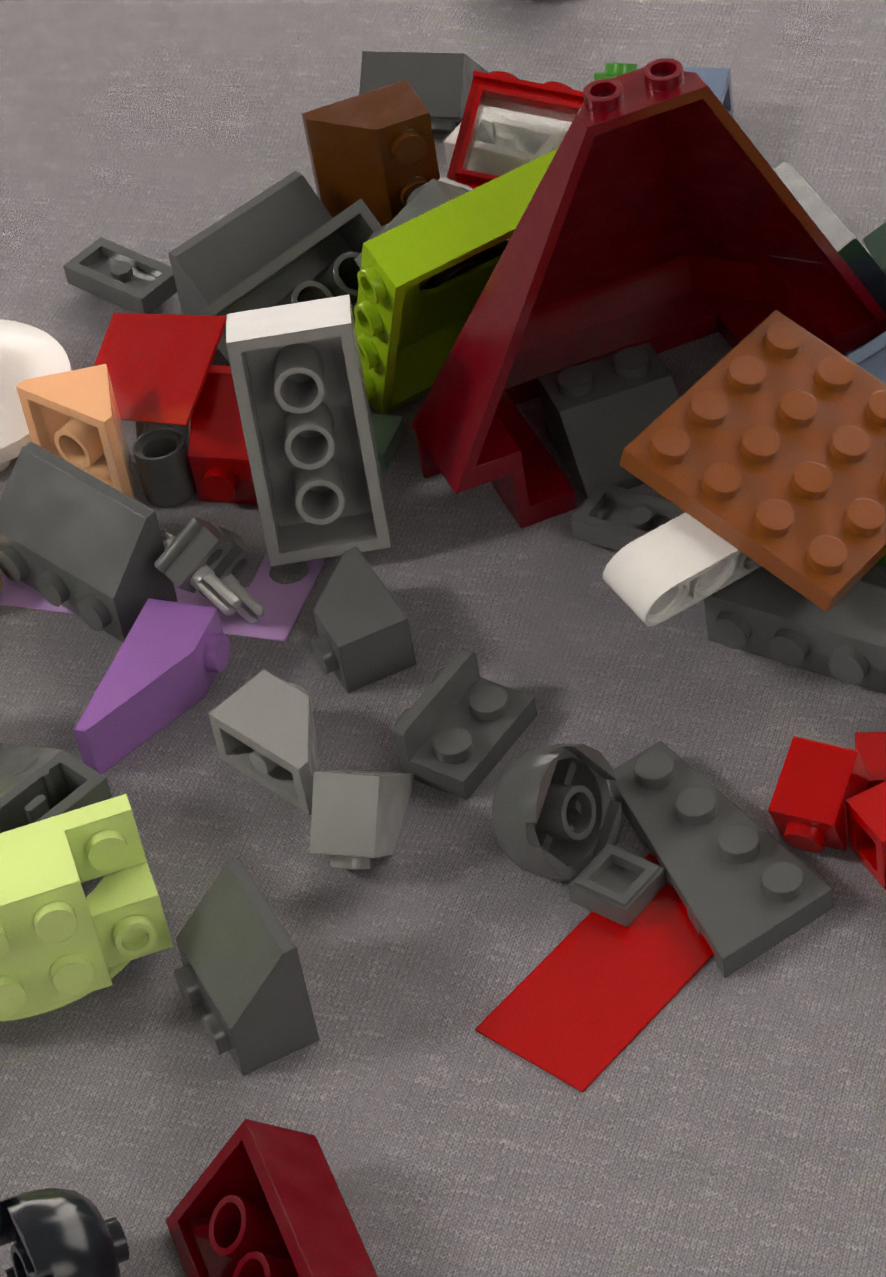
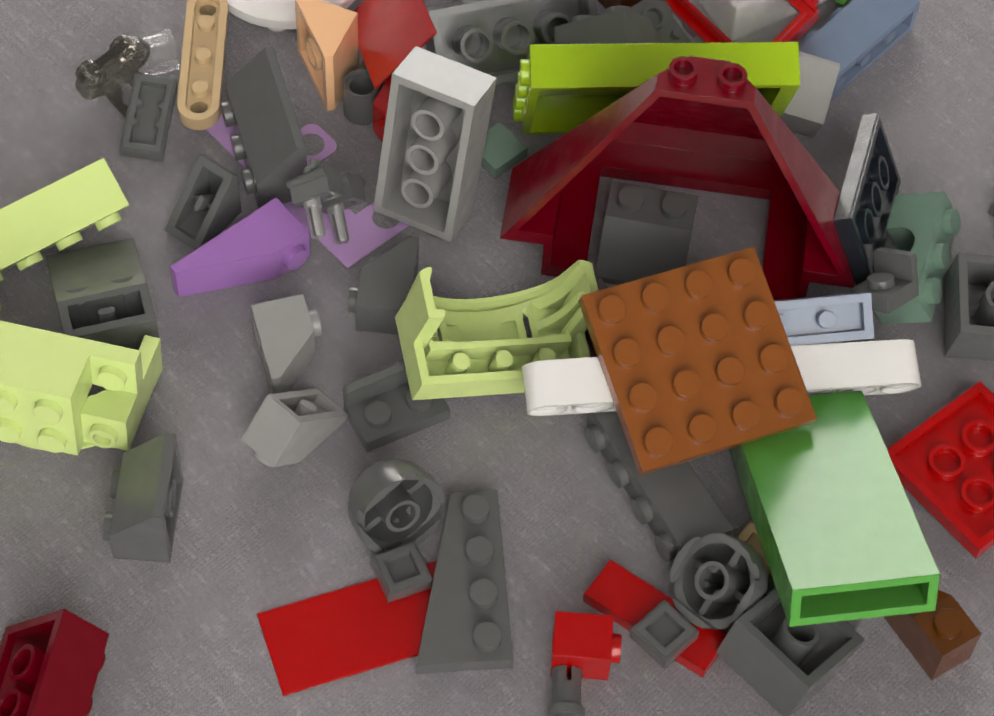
camera: 20 degrees right, 15 degrees up
(60, 655) = (206, 203): none -> dark grey slope
(515, 611) = (483, 342): none -> yellowish green piece
(813, 792) = (547, 589): red brick -> none

